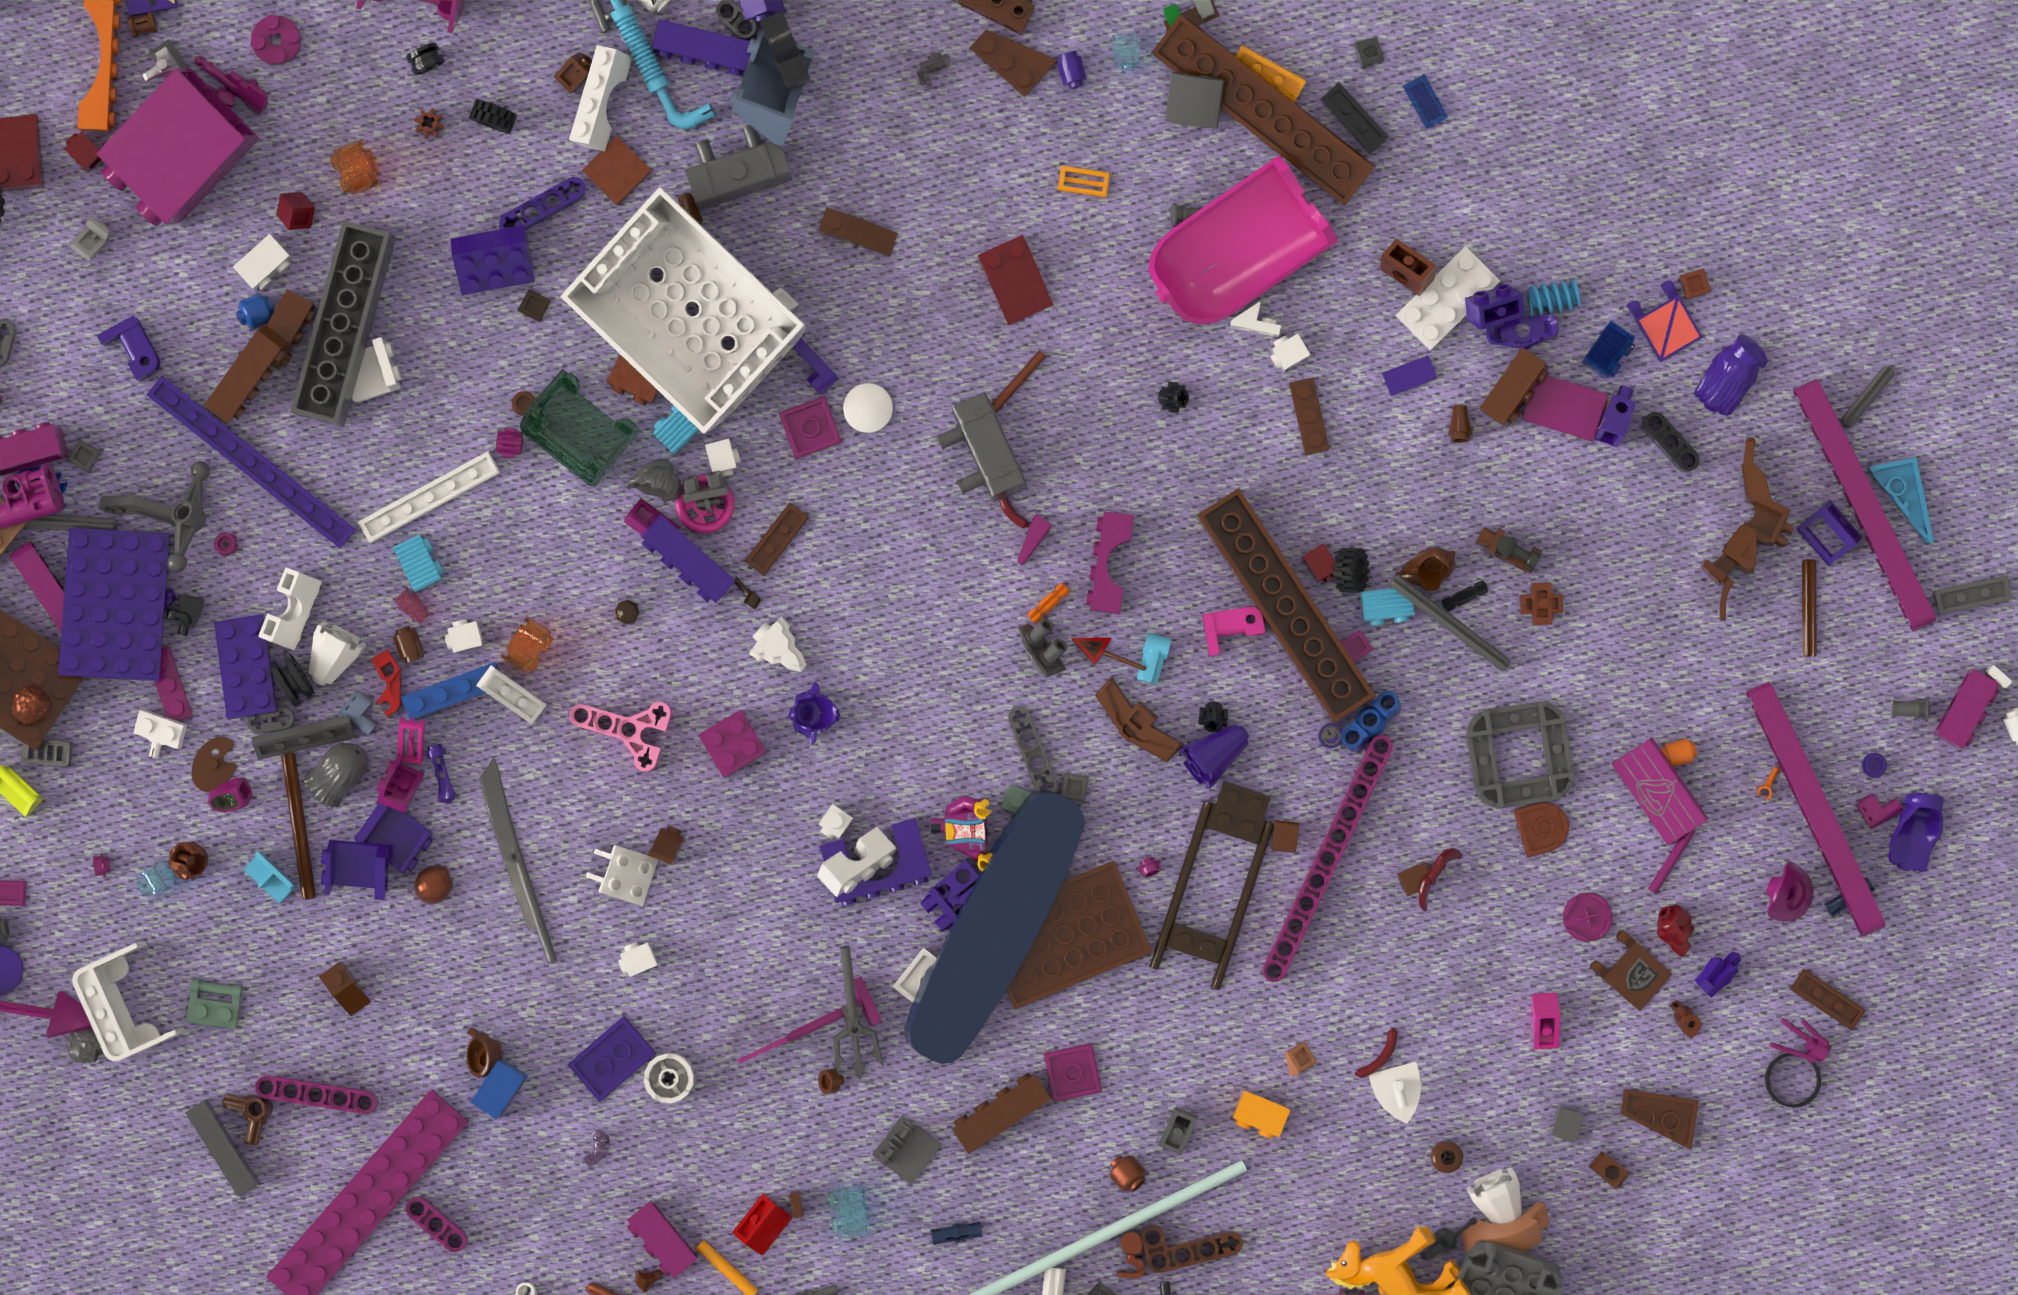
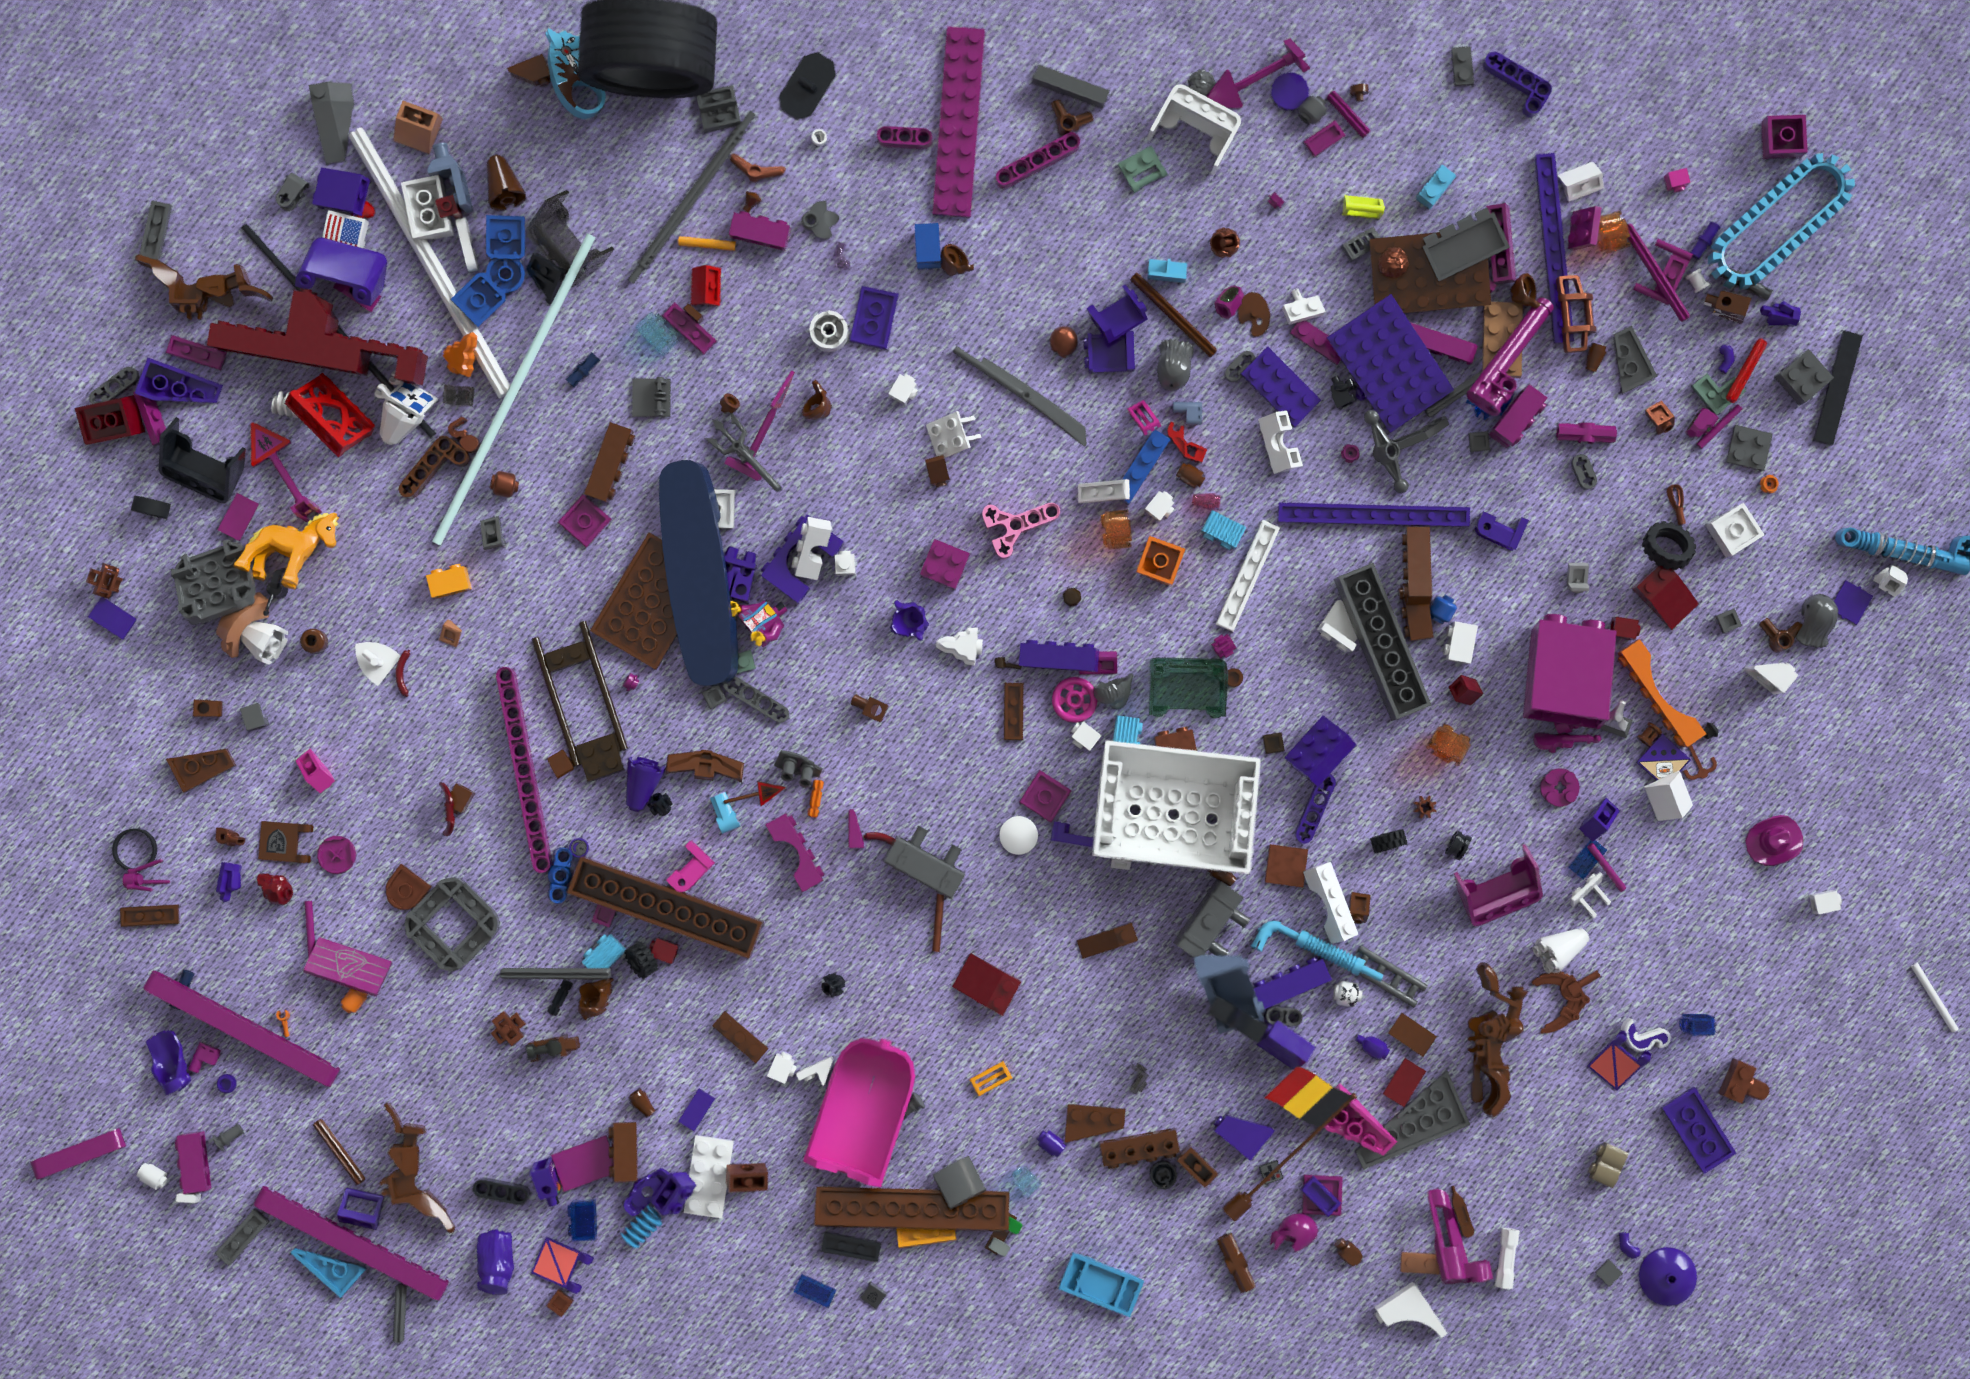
camera: 145 degrees right, 0 degrees up
(156, 879) = (1235, 216): clear light blue brick -> none
(292, 679) = (1245, 399): black wheel -> none
(303, 737) = (1212, 370): dark grey plate -> none
(332, 653) = (1234, 435): white cone -> none
(344, 988) = (1069, 237): reddish brown slope -> none
(399, 785) = (1130, 385): magenta bracket -> none
(446, 793) = (1100, 404): dark purple piece -> none
(507, 579) = (1160, 561): none -> orange slope
(587, 1202) = (823, 220): none -> dark grey plate
(716, 487) = (1077, 705): dark grey hips -> none
(739, 1001) = (819, 398): none -> reddish brown hat
(812, 1193) = (689, 328): none -> magenta tile
(921, 653) = (870, 707): none -> reddish brown bracket
(1790, 894) = (219, 963): magenta hat -> none

